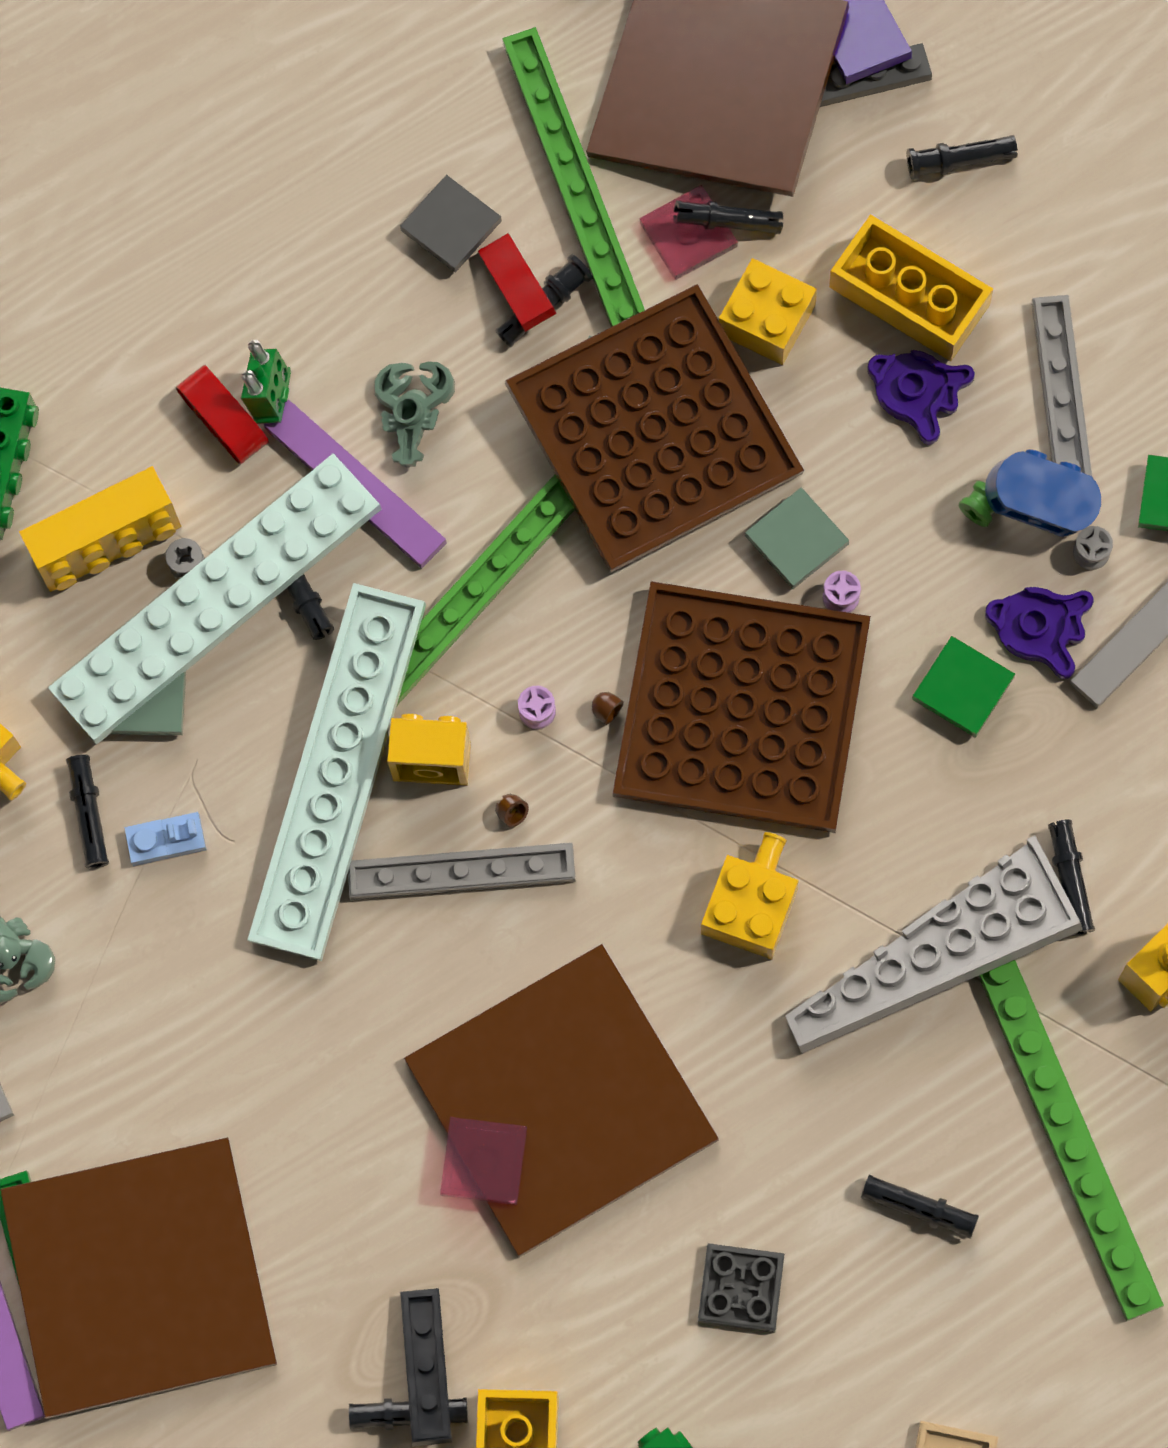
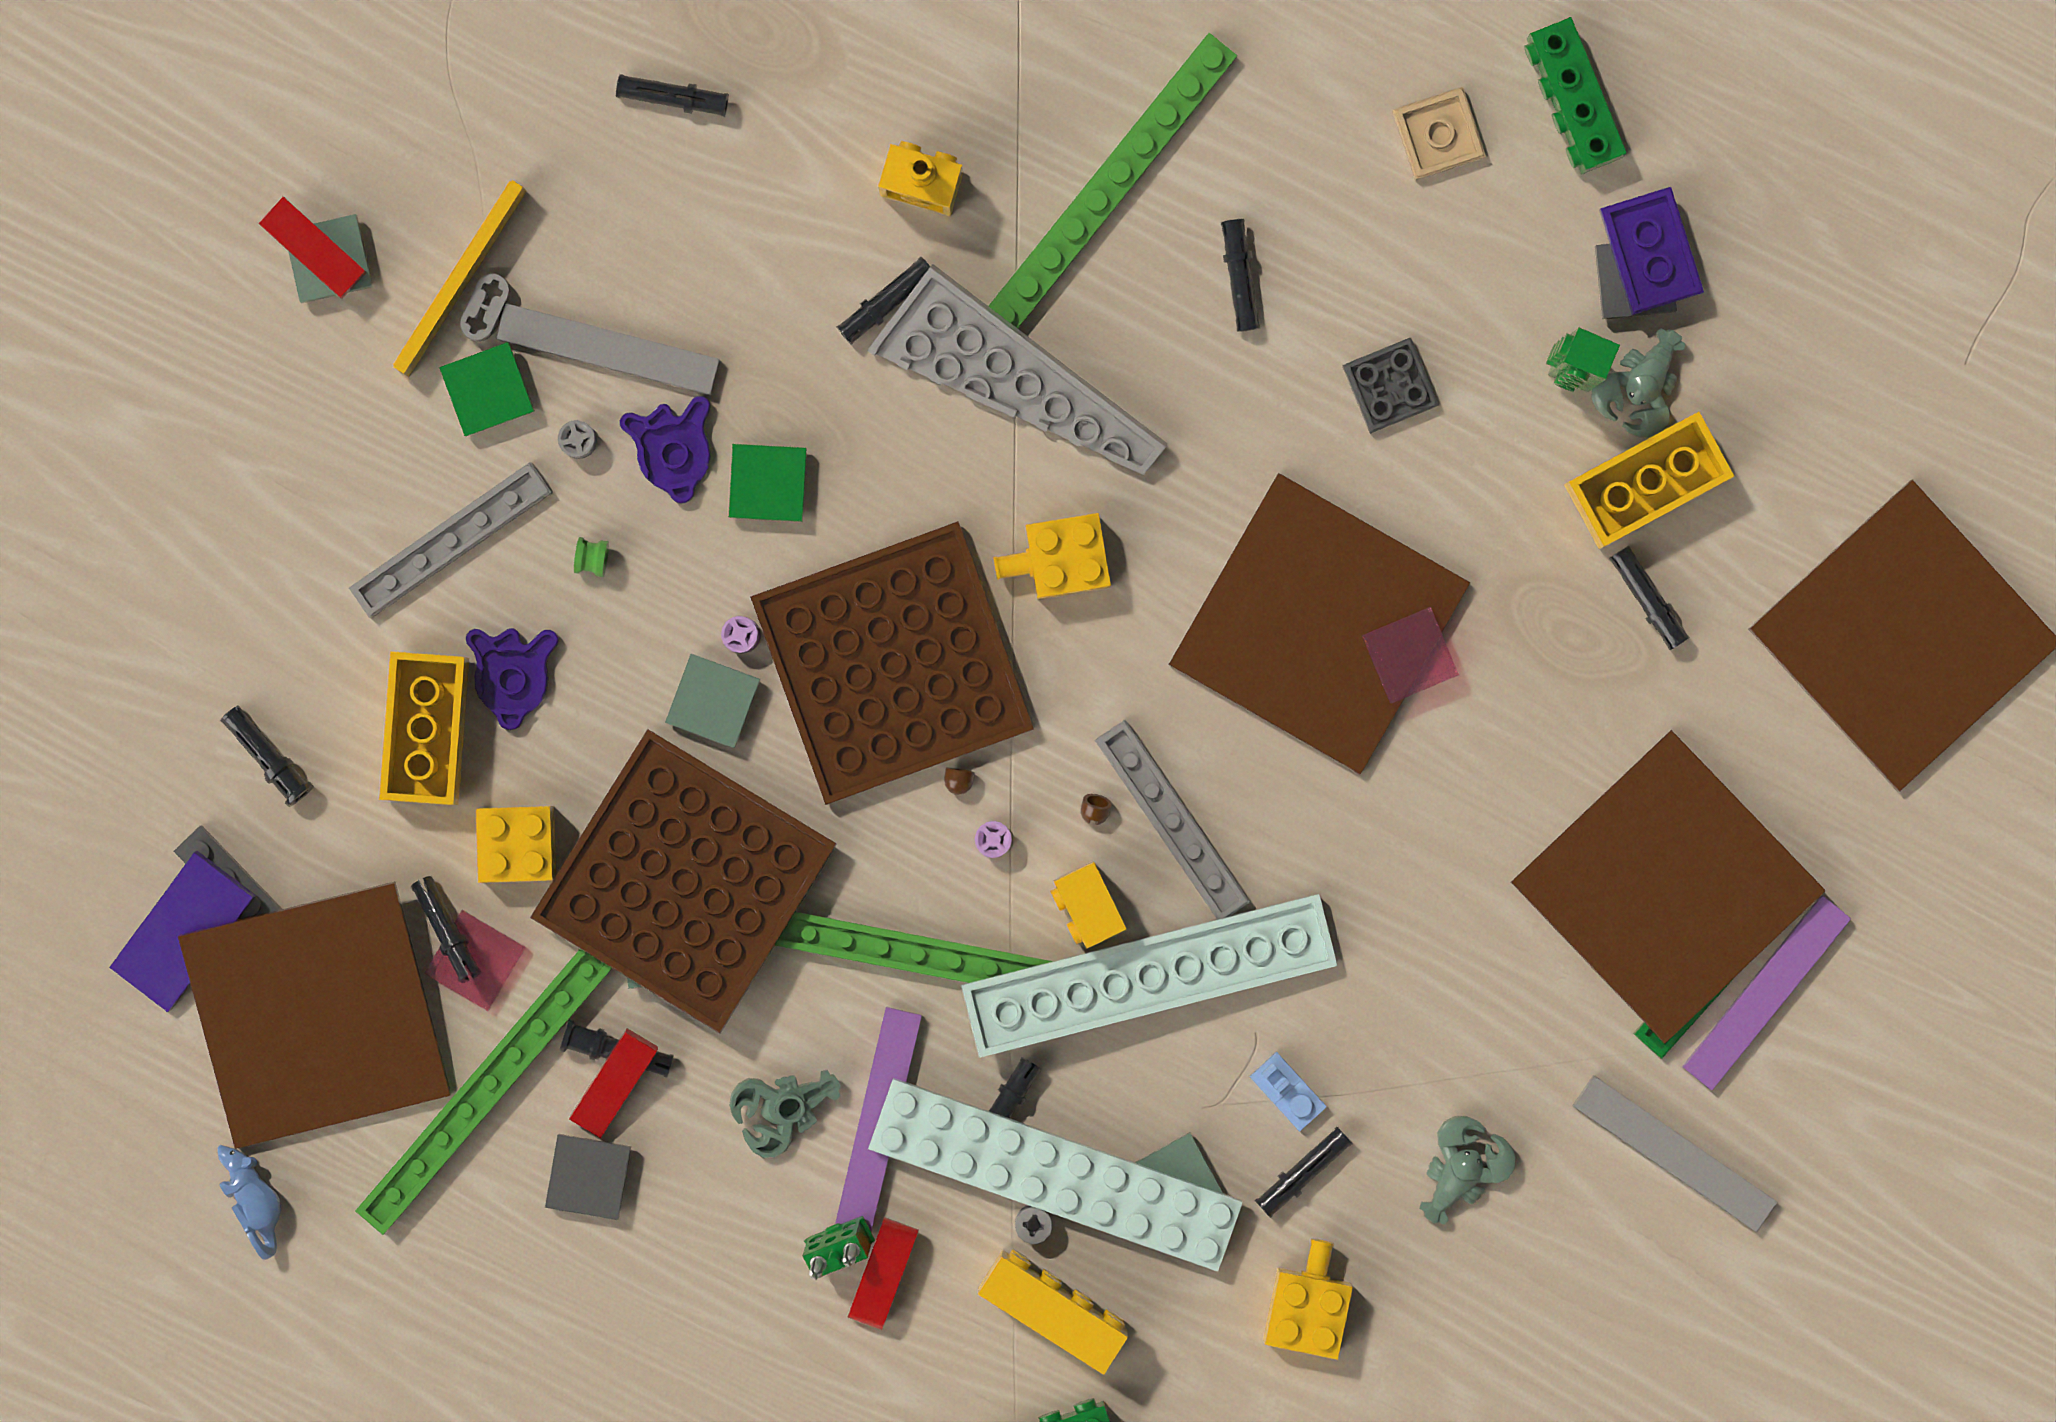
camera: 125 degrees left, 15 degrees up
(425, 1367) = (1605, 604): black tile -> none
(1043, 493) = (557, 505): blue brick -> none

